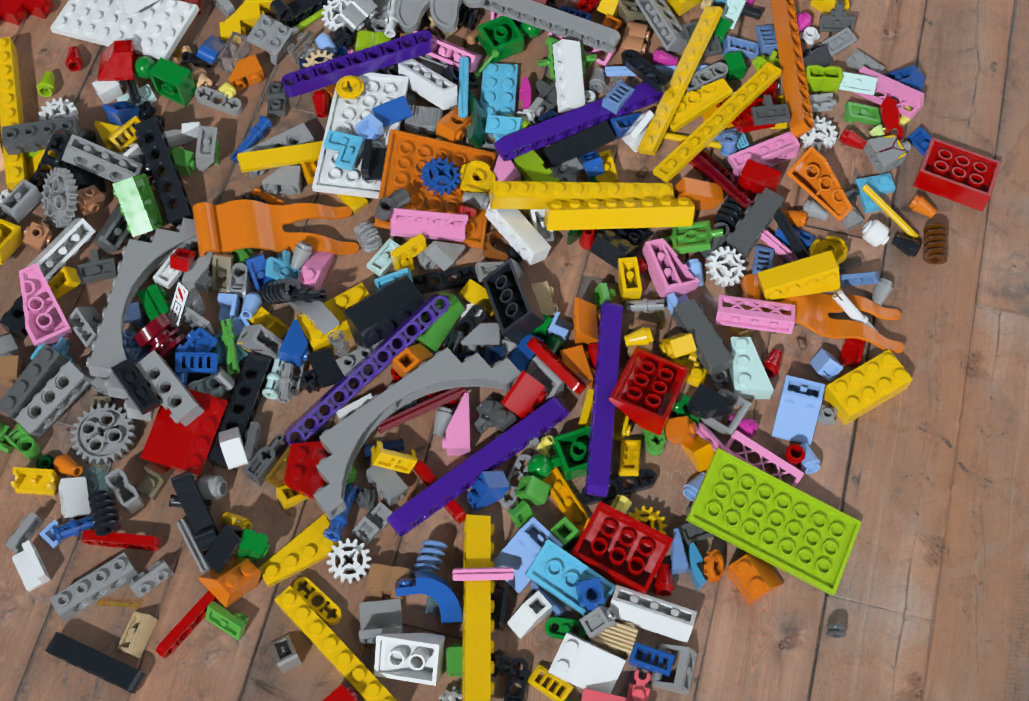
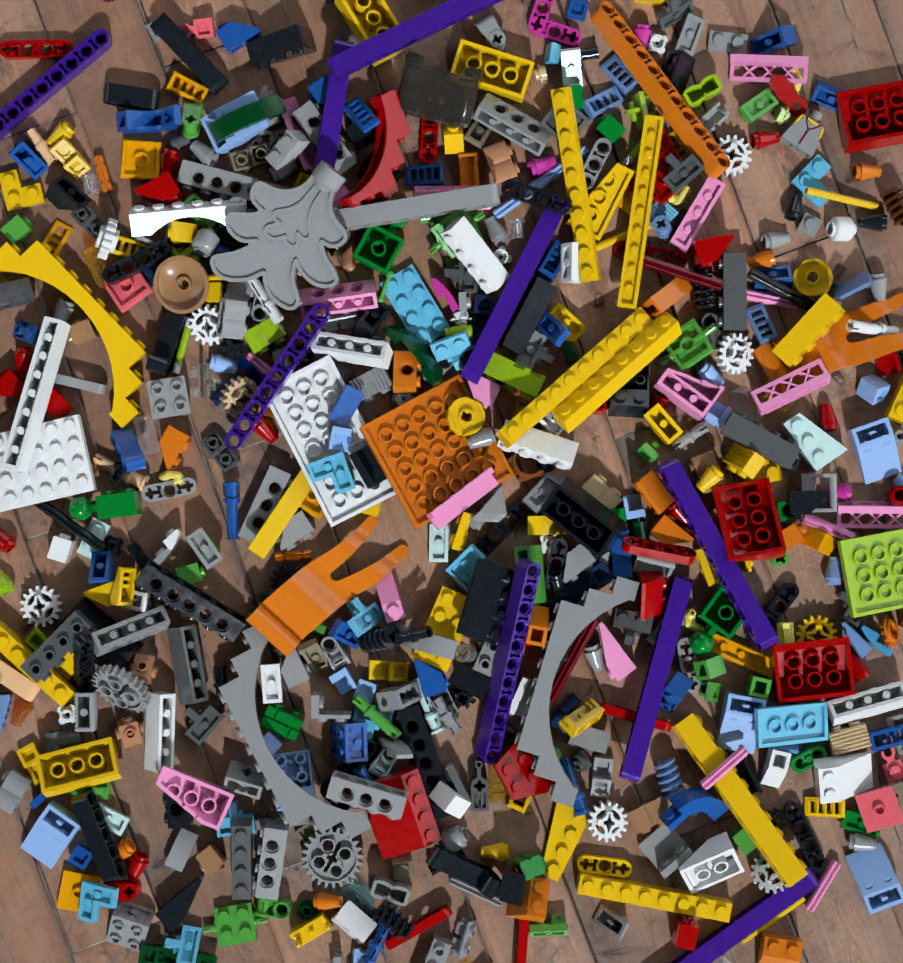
camera: 35 degrees left, 25 degrees up
(70, 278) = (187, 749): yellow slope -> none
(117, 62) = (54, 523): red slope -> none
(135, 386) = (343, 816): black tile -> none
(138, 205) = (198, 649): slope -> none
(159, 337) = (316, 752): dark red wheel -> none
(178, 305) = (312, 722): sticker -> none
(182, 259) = (275, 671): red slope -> none
(204, 370) = (377, 755): blue slope -> none
(251, 304) = (361, 666): light blue cone -> none
(301, 254) = (371, 595): light grey cone -> none
(356, 84) = (287, 396): yellow gear -> none
(368, 236) = (409, 536): light grey gear -> none
(396, 200) = (421, 502): dark grey piece -> none
(442, 176) = (437, 450): blue gear -> none
(463, 87) = (388, 332): medium azure axle -> none
(465, 211) = (482, 460): red tile -> none
(581, 589) = (808, 723): blue brick -> none
(598, 621) = (834, 741): light grey bracket -> none
(612, 105) = (530, 262): medium blue slope -> none
(629, 458) = (766, 584): yellow plate -> none
(753, 140) = (680, 197): none -> light yellow arm
(820, 182) = (763, 213): orange wedge -> none
(858, 83) = (737, 75): light aqua plate -> none

